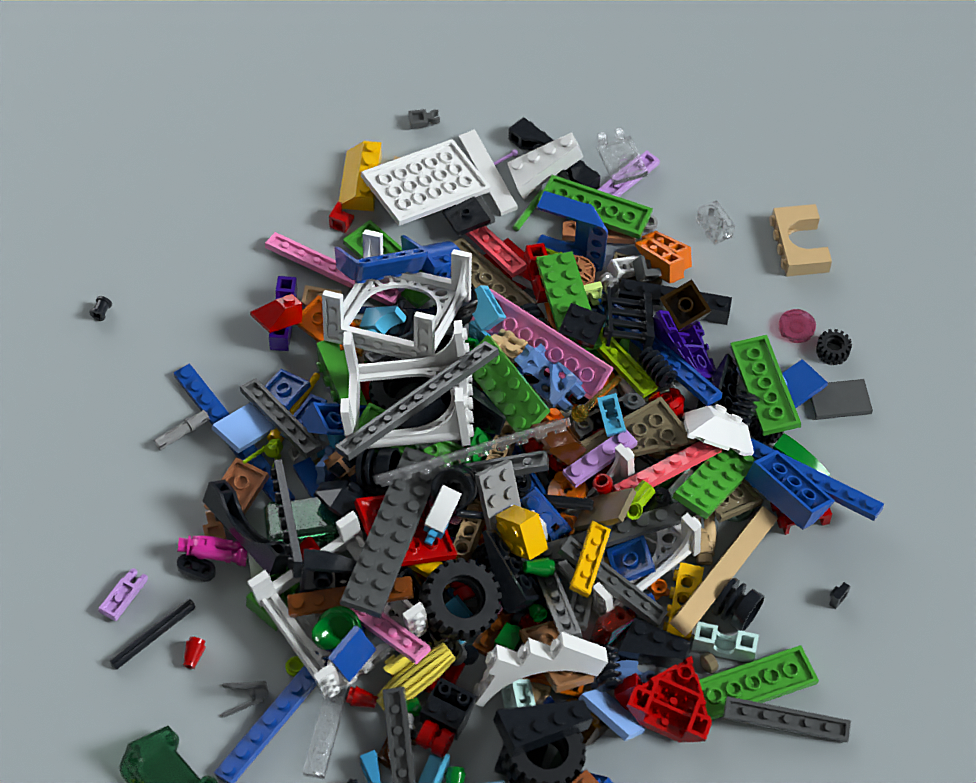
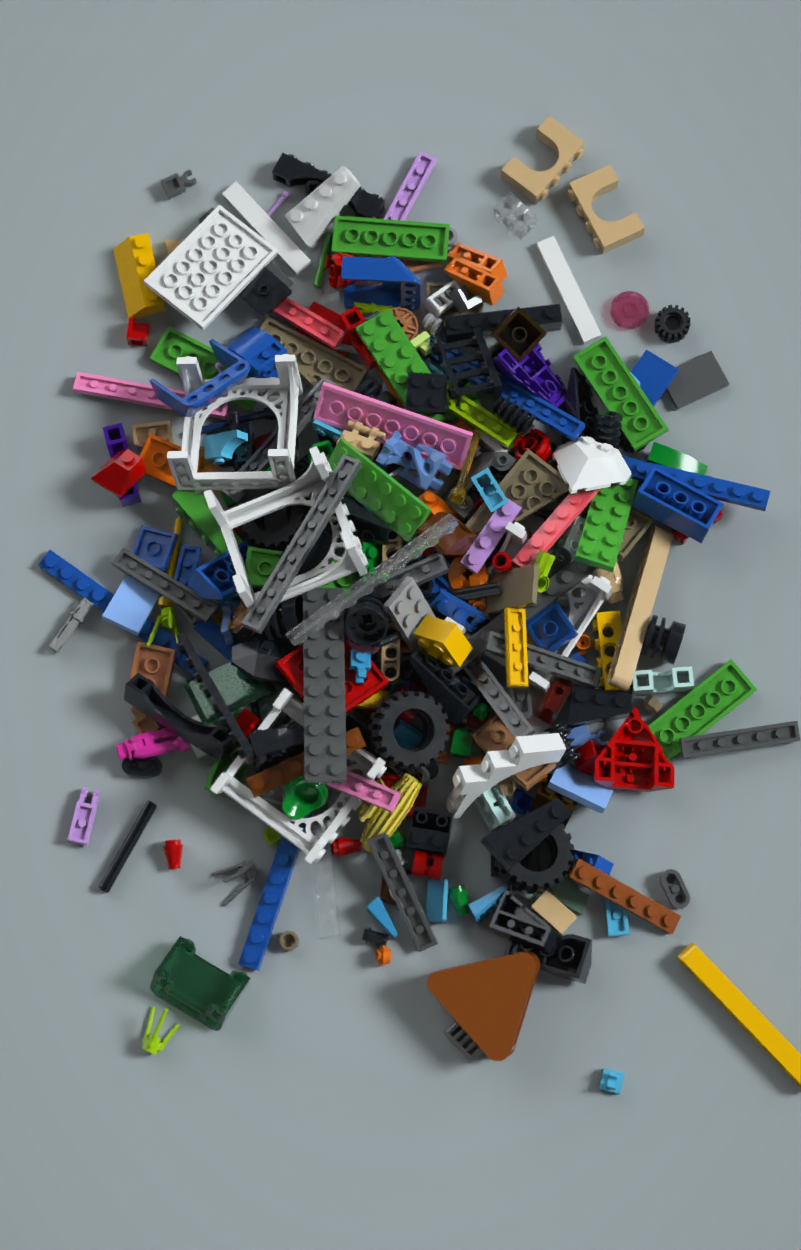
camera: 15 degrees left, 20 degrees up
(272, 767) = (288, 941): none -> dark tan tile
(352, 653) = (329, 821): blue tile -> none
(442, 509) = (364, 648): white slope -> none
(488, 310) = (329, 405): medium azure arch -> none
(541, 222) = (334, 264): none -> red cone
(542, 567) = (473, 667): green cone -> none
(621, 157) = (397, 169): clear tile -> none
(744, 203) = (537, 183): none -> tan arch
(745, 293) = (568, 290): none -> white tile
(839, 594) = (751, 594): black plate -> none

